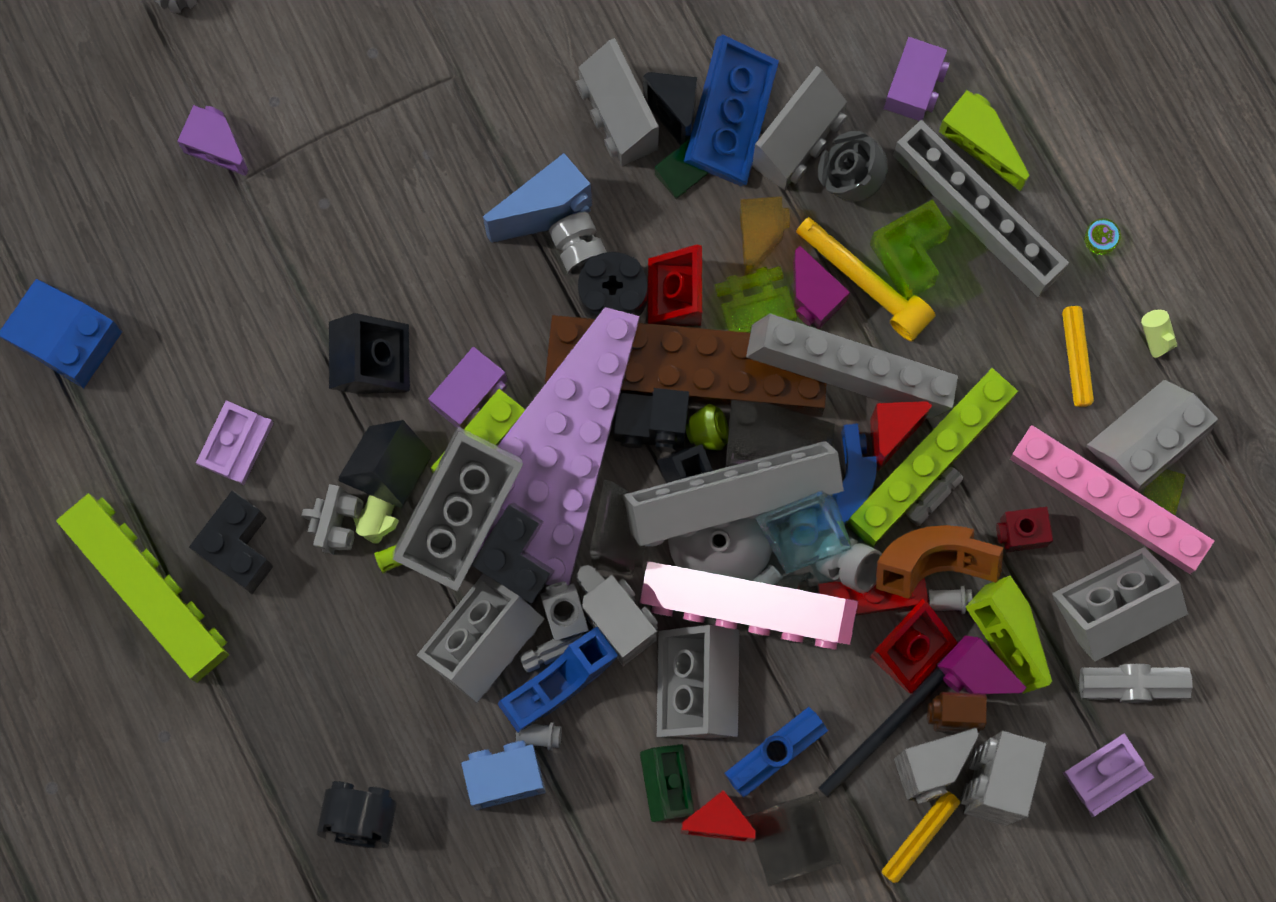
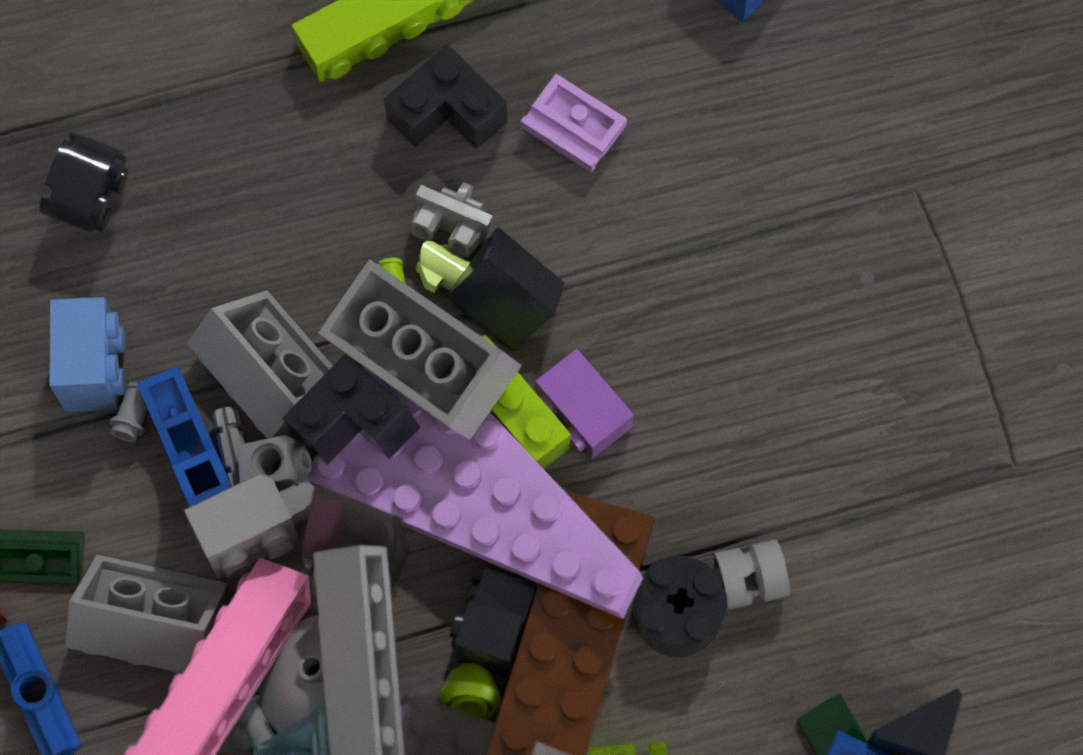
camera: 100 degrees right, 5 degrees down
(211, 139) = (970, 155): medium lavender slope -> none
(368, 355) = (651, 294): black slope -> none
(540, 202) = (815, 544): medium blue slope -> none
(618, 104) = (934, 661): light grey slope -> none
(676, 287) = (668, 692): red slope -> none
(684, 463) = (422, 651): black brick -> none

